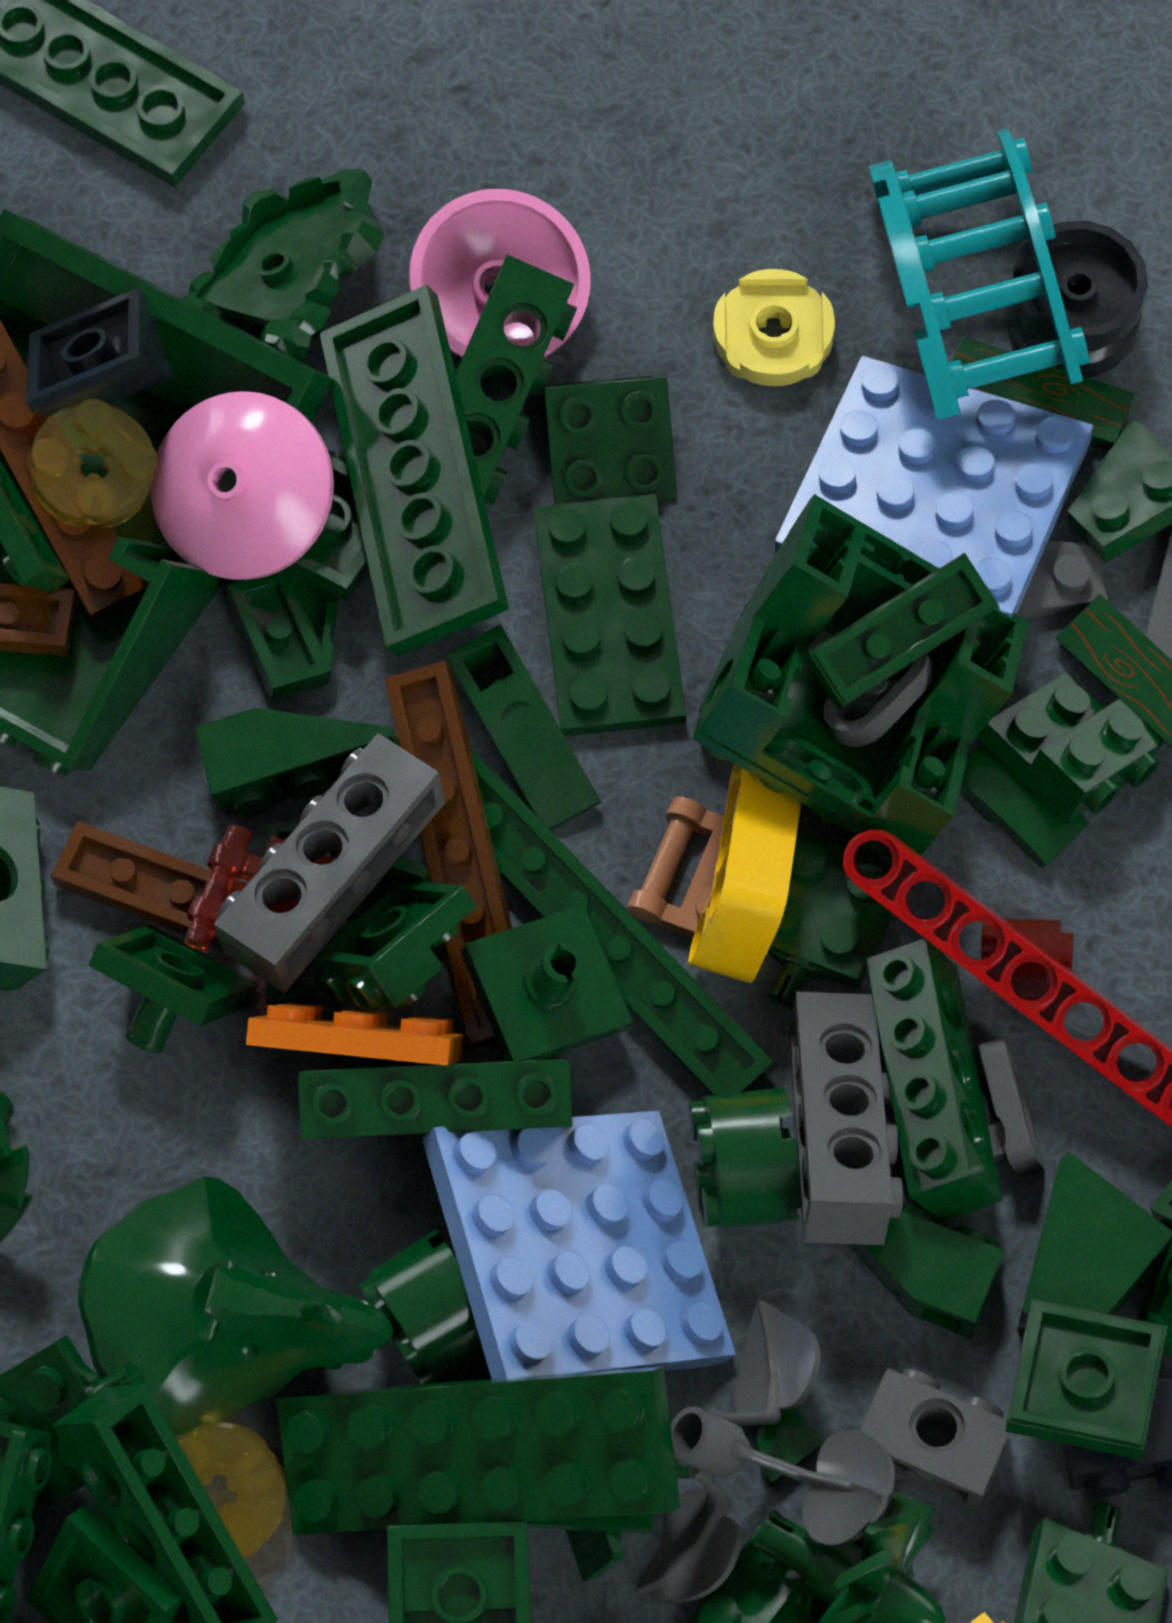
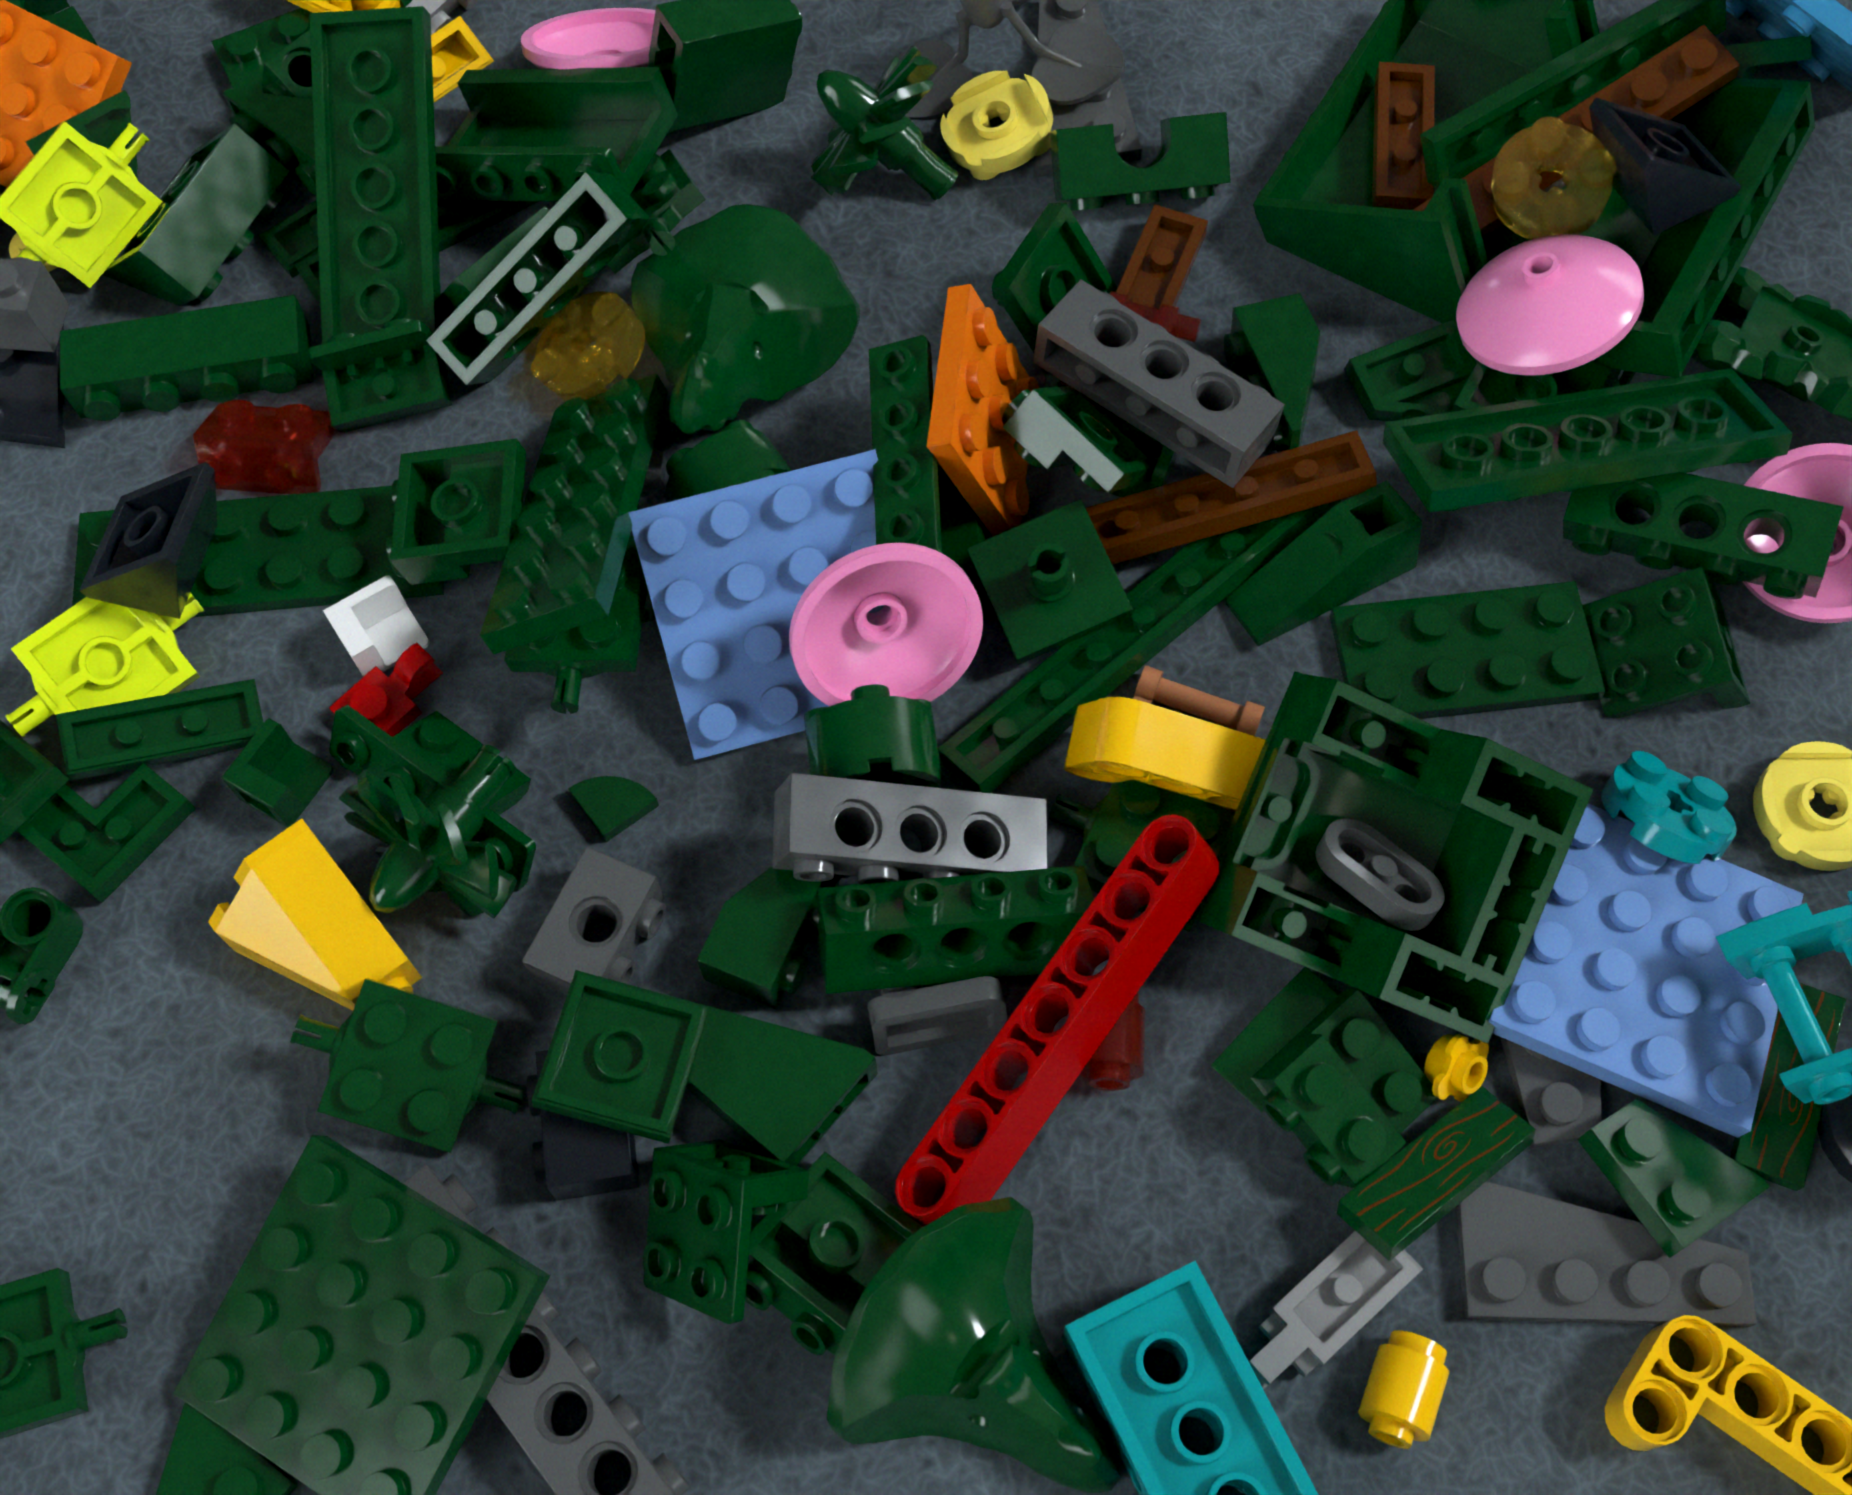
camera: 90 degrees right, 0 degrees up
(633, 1125) = (911, 645): none -> bright pink dish
(789, 449) = (1670, 810): none -> teal plate
(846, 1491) = (559, 703): dark grey plant -> none
(901, 631) = (1441, 880): dark green tile -> none
(1044, 656) = (1456, 1066): none -> yellow plate

